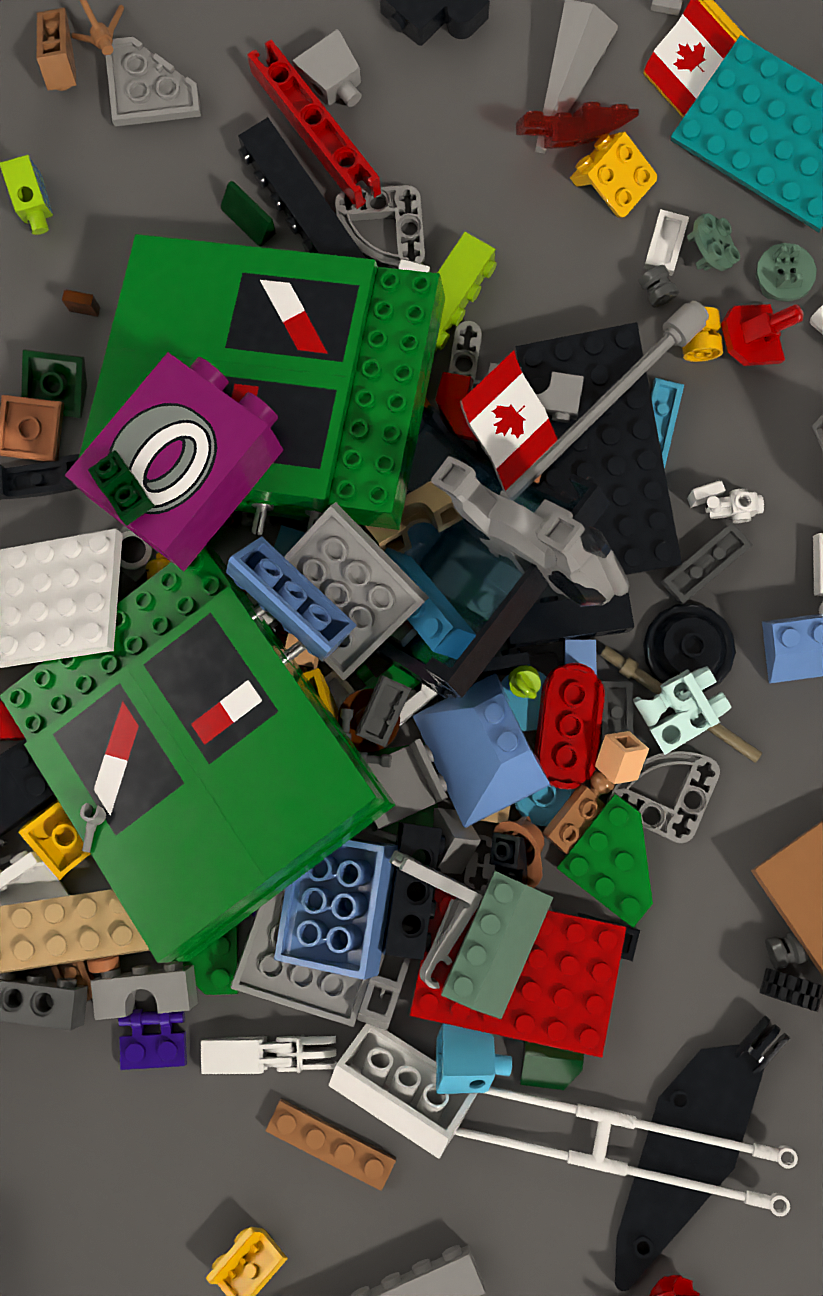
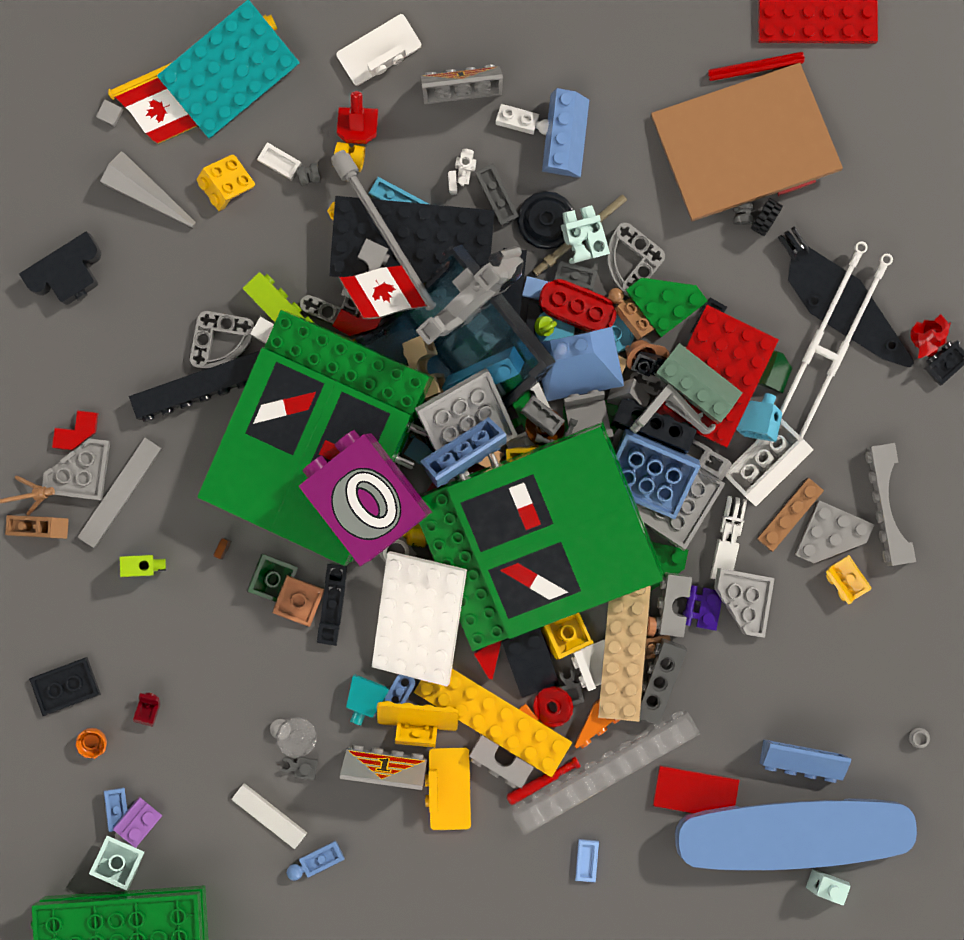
camera: 80 degrees left, 5 degrees up
(92, 823) = (572, 604): light grey hand -> none
(121, 487) = (379, 531): dark green slope -> none
(131, 147) = (119, 493): none -> light grey tile
(179, 1106) = (746, 599): none -> light grey plate
(211, 77) = (84, 428): none -> red tile
(247, 214) = (189, 426): dark green slope -> none
(316, 1220) = (831, 533): none -> light grey plate
(325, 137) = (126, 371): red piece -> none
(330, 70) = (104, 347): light grey torso -> none
(584, 127) = (189, 195): clear red slope -> none
(621, 757) = (605, 279): light nougat brick -> none
(714, 243) = (290, 131): sand green plate -> none
(787, 285) = (329, 93): sand green plate -> none

